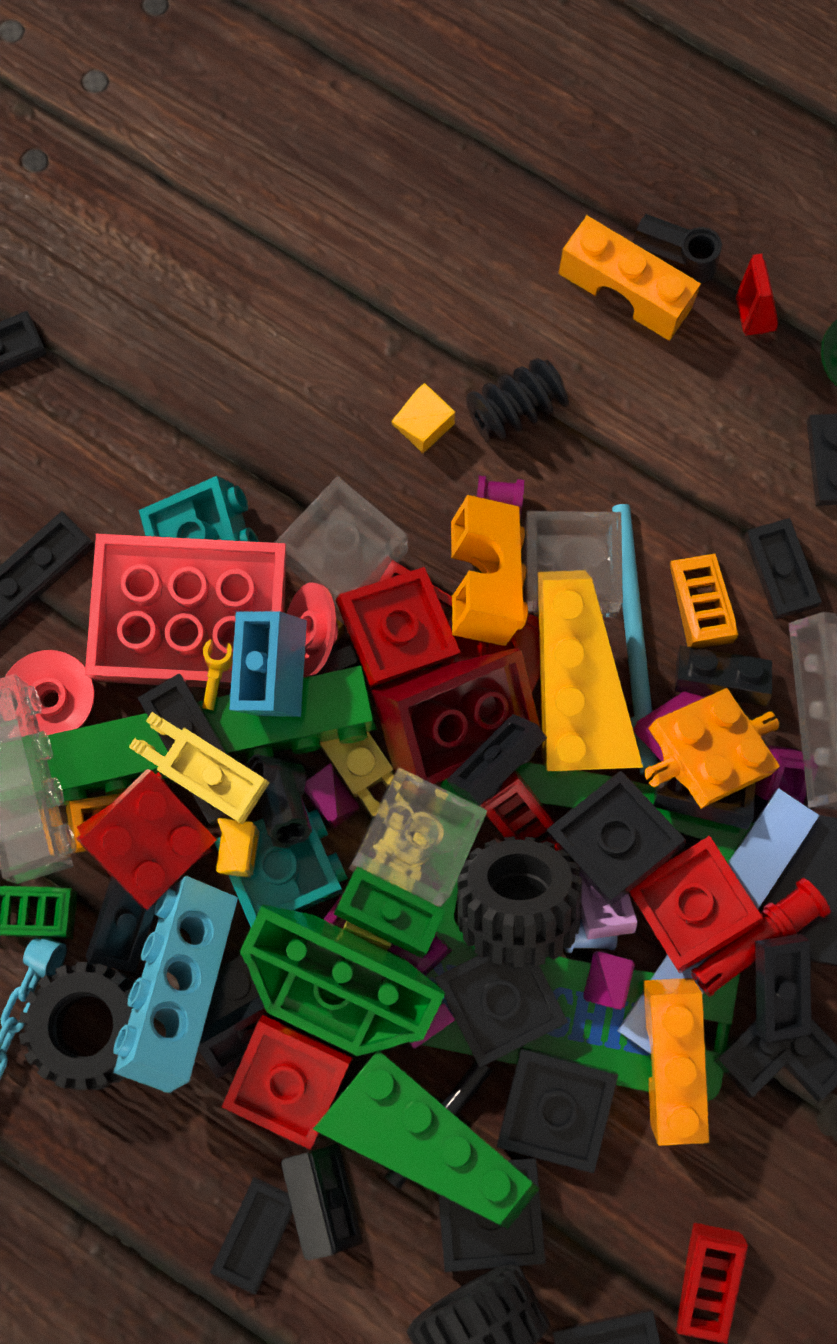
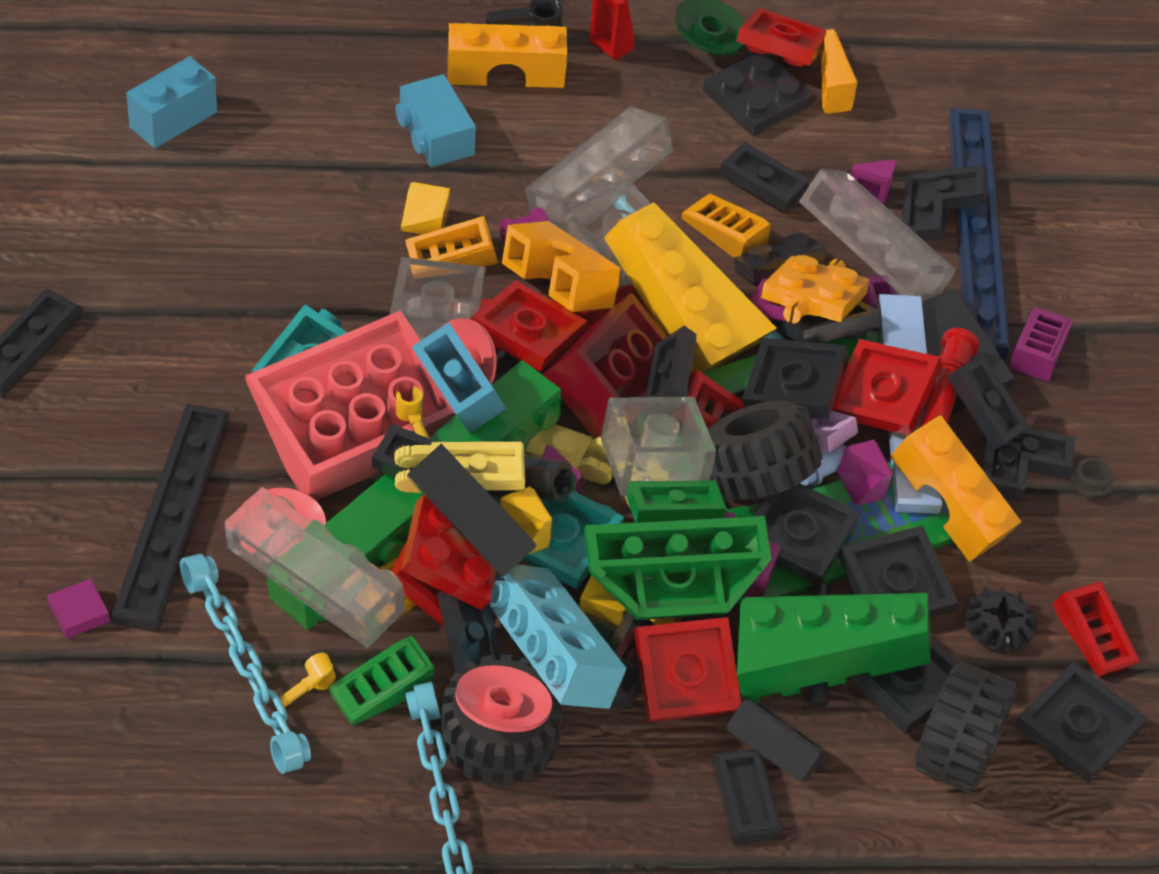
camera: 40 degrees left, 25 degrees down
(74, 1007) = (503, 698): none -> coral dish
(171, 822) = (471, 510): none -> black tile
(272, 159) = (172, 102): none -> dark azure brick
(453, 492) = (463, 234): none -> light orange slope
(505, 317) = (436, 121): none -> dark azure brick
(516, 398) = (488, 164): black piece -> none
(604, 1210) = (985, 625): none -> black gear
(621, 467) = (610, 157): none -> clear brick

